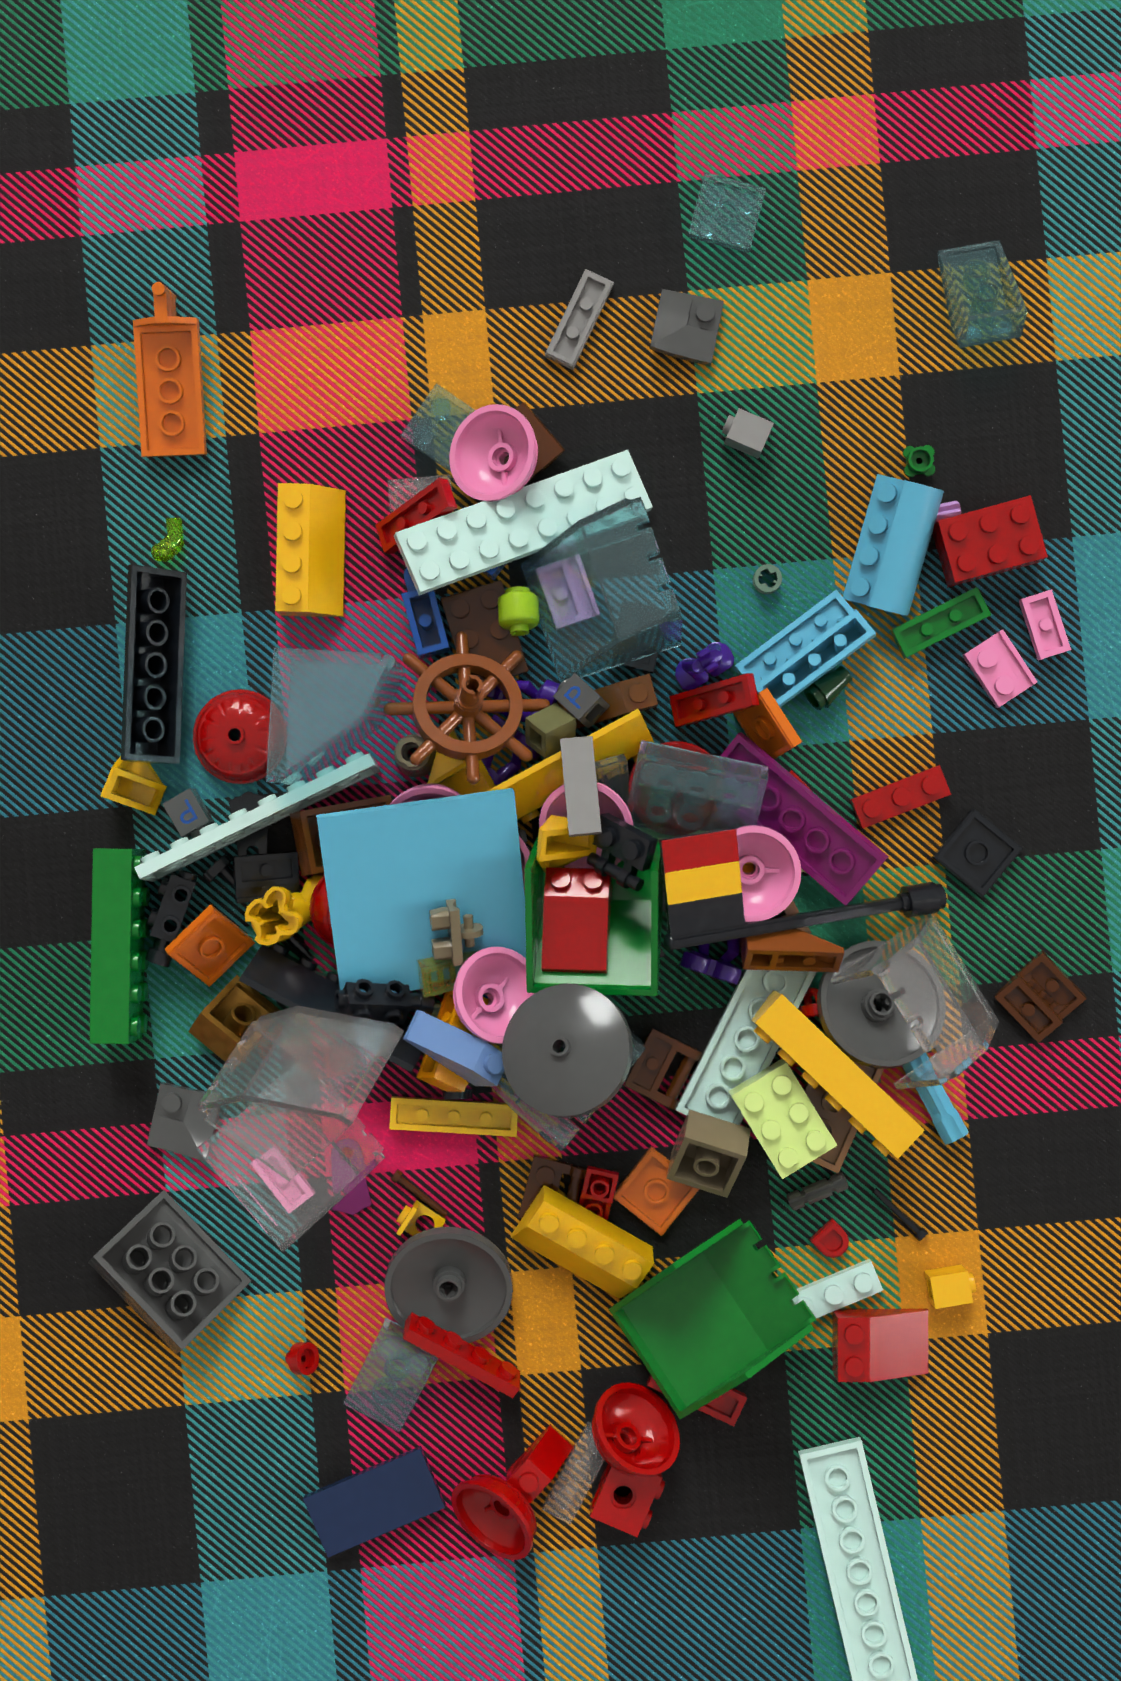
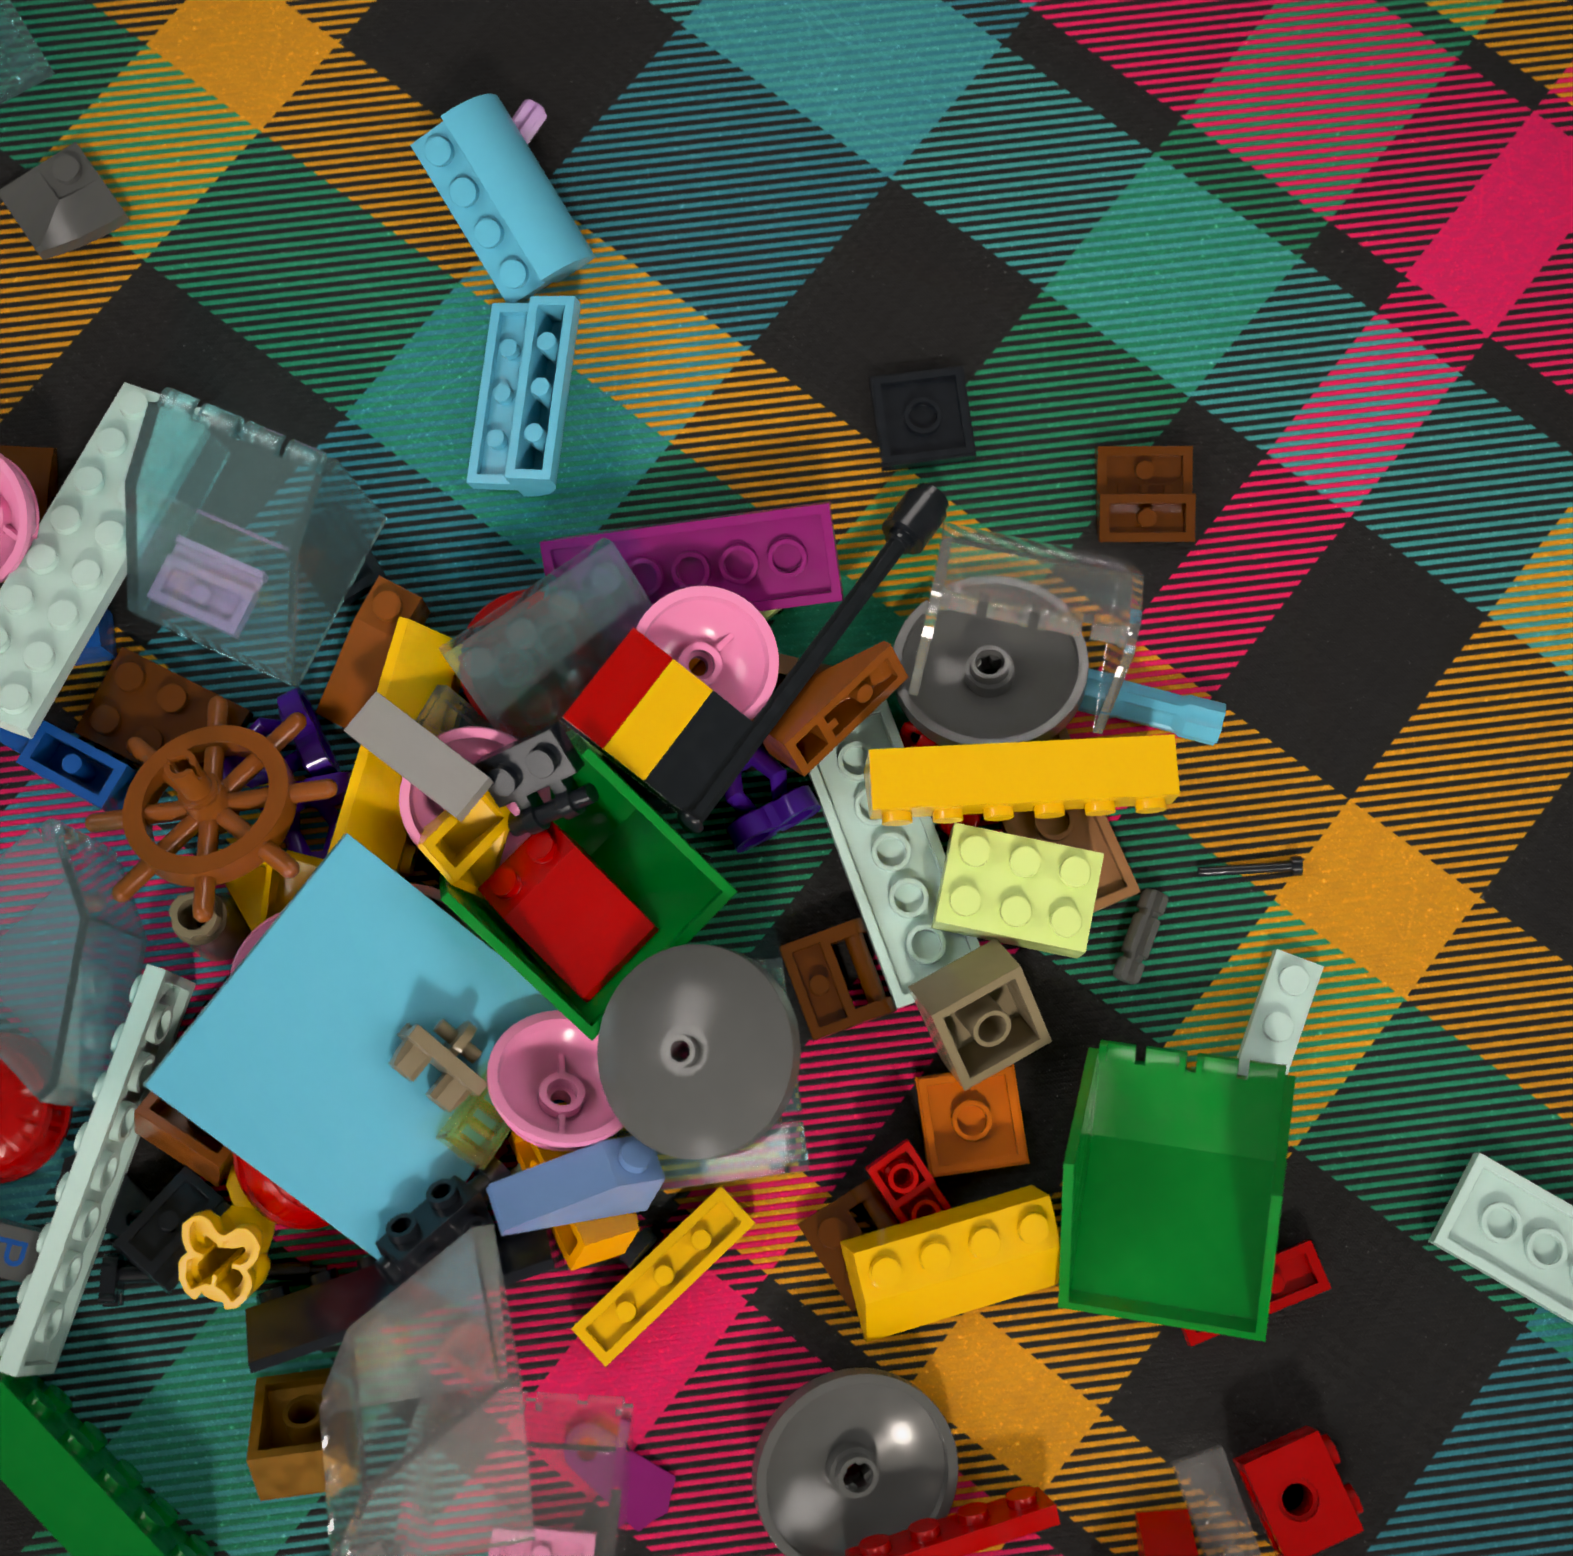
camera: 50 degrees left, 10 degrees down
(171, 908) = (97, 1381): black brick -> none
(209, 945) = (186, 1375): orange tile -> none
(397, 1177) = (672, 1412): reddish brown piece -> none
(408, 1218) = (730, 1441): yellow bracket -> none
(518, 610) = (170, 655): lime head -> none
(547, 727) = (322, 743): olive brick -> none
(581, 700) = (333, 675): dark grey brick -> none
(635, 1430) = (1231, 1410): red hat -> none
(711, 660) = (436, 504): dark purple piece -> none
(714, 700) = (478, 533): red plate -> none
(747, 432) = (234, 242): light grey brick -> none
(763, 588) = (405, 353): sand green bush -> none
(768, 726) = (560, 501): orange tile -> none
(827, 688) = (588, 411): dark green cone -> none
(831, 1239) = (1211, 972): red tile -> none
(879, 1344) = (1382, 1029): slope -> none
(900, 797) = (782, 442): red plate -> none
(925, 454) = (438, 89): green plate -> none
(940, 622) = (636, 231): green plate -> none
(949, 1286) = (1386, 886): yellow brick -> none
(989, 541) = (599, 103): red brick -> none
(999, 668) = (746, 217): bright pink plate -> none
(1044, 625) = (744, 129): bright pink plate -> none

